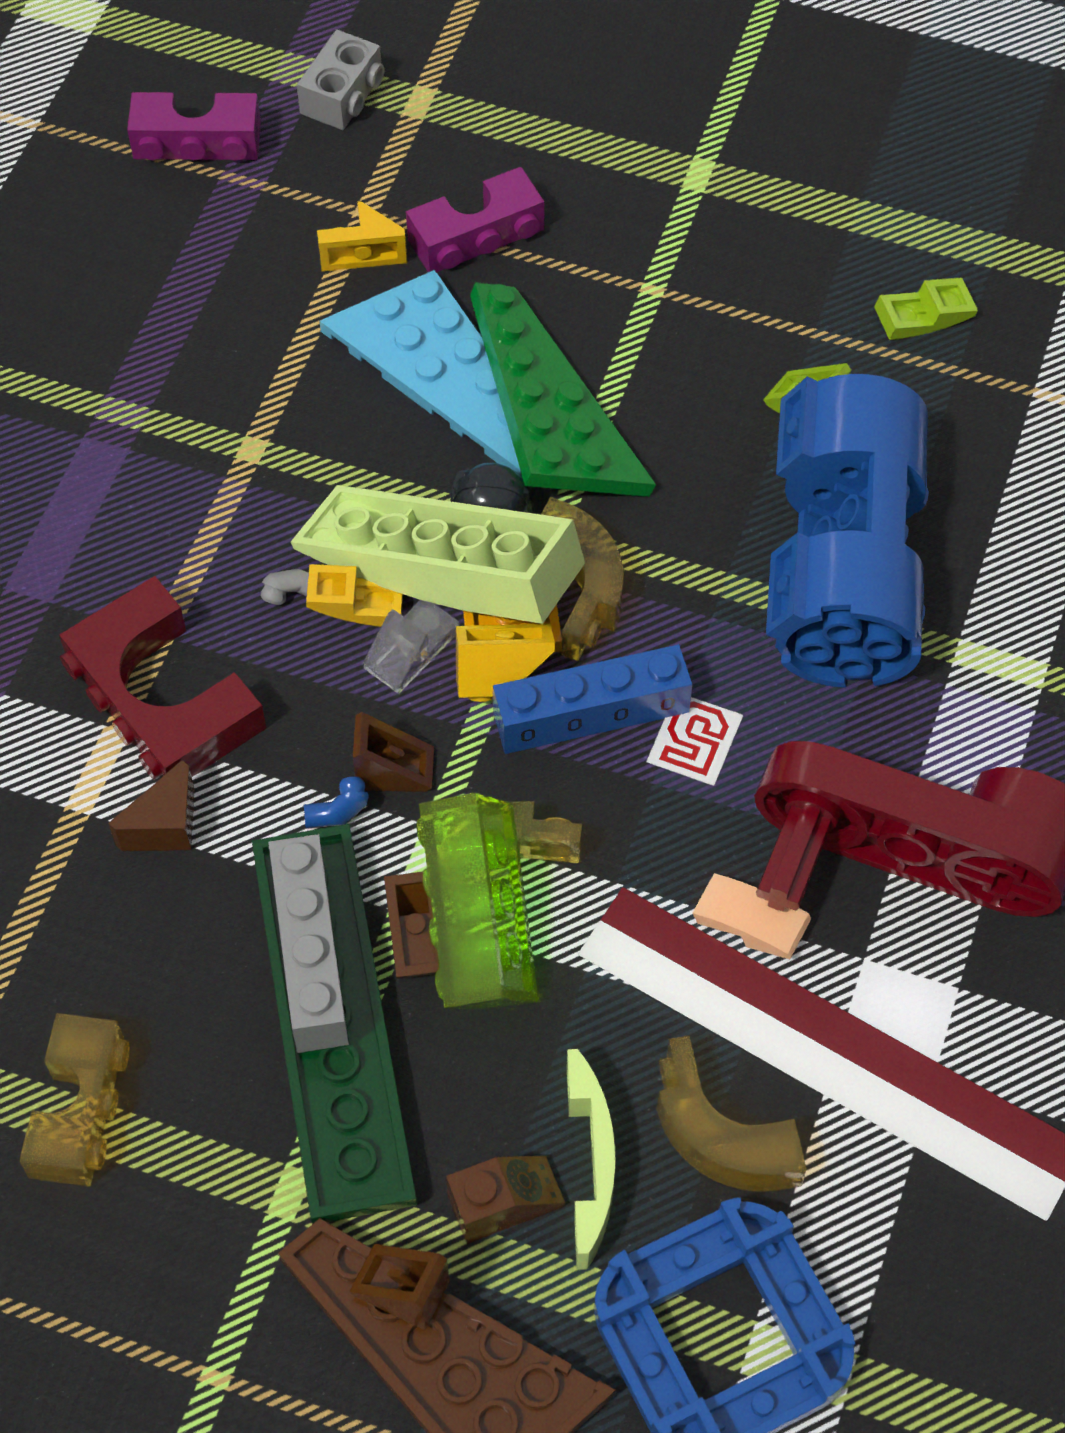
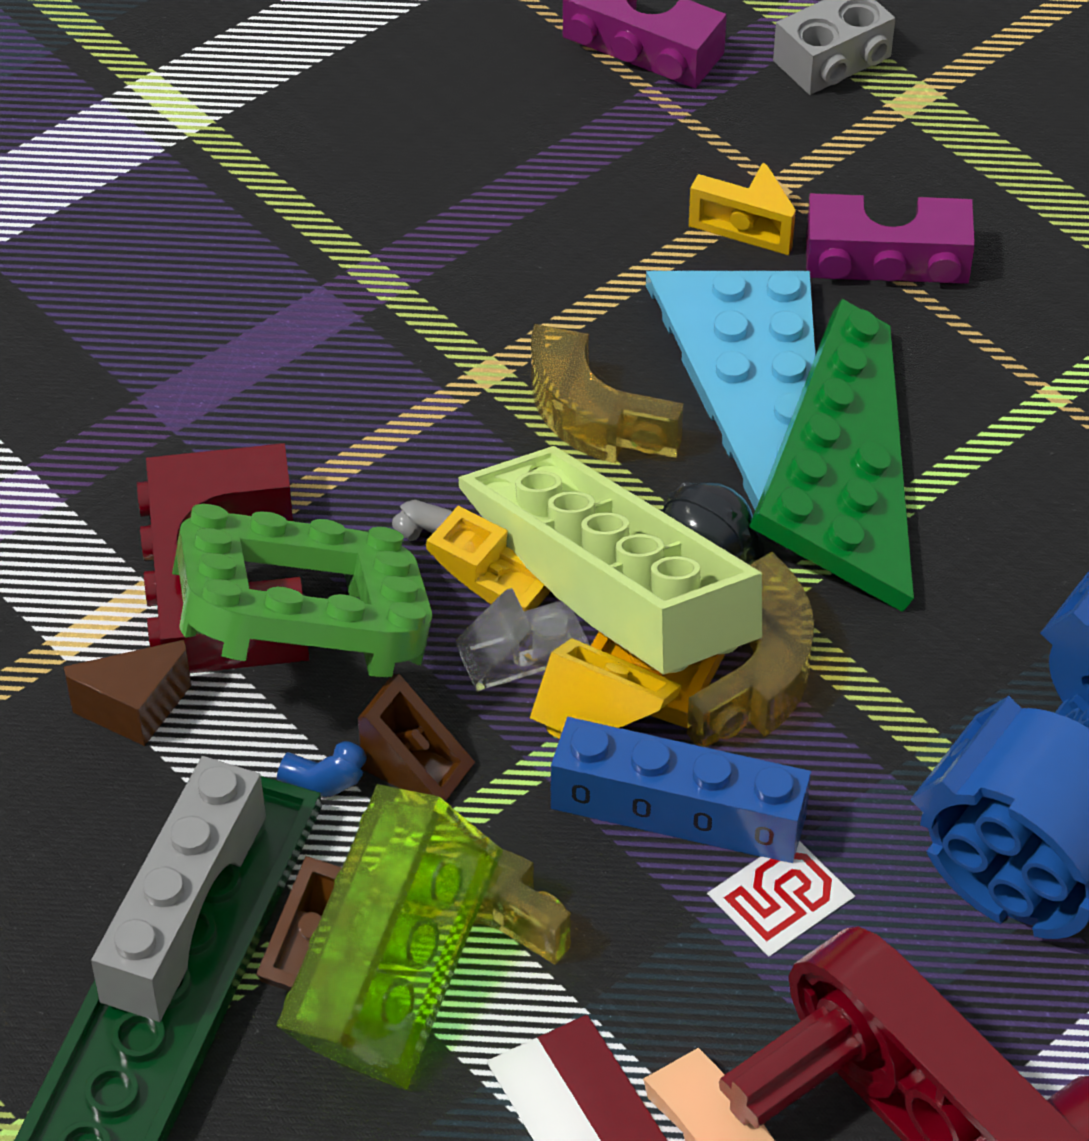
camera: 30 degrees right, 10 degrees down
(329, 681) = (385, 624): none -> bright green plate
(345, 447) = (590, 412): none -> clear yellow arch

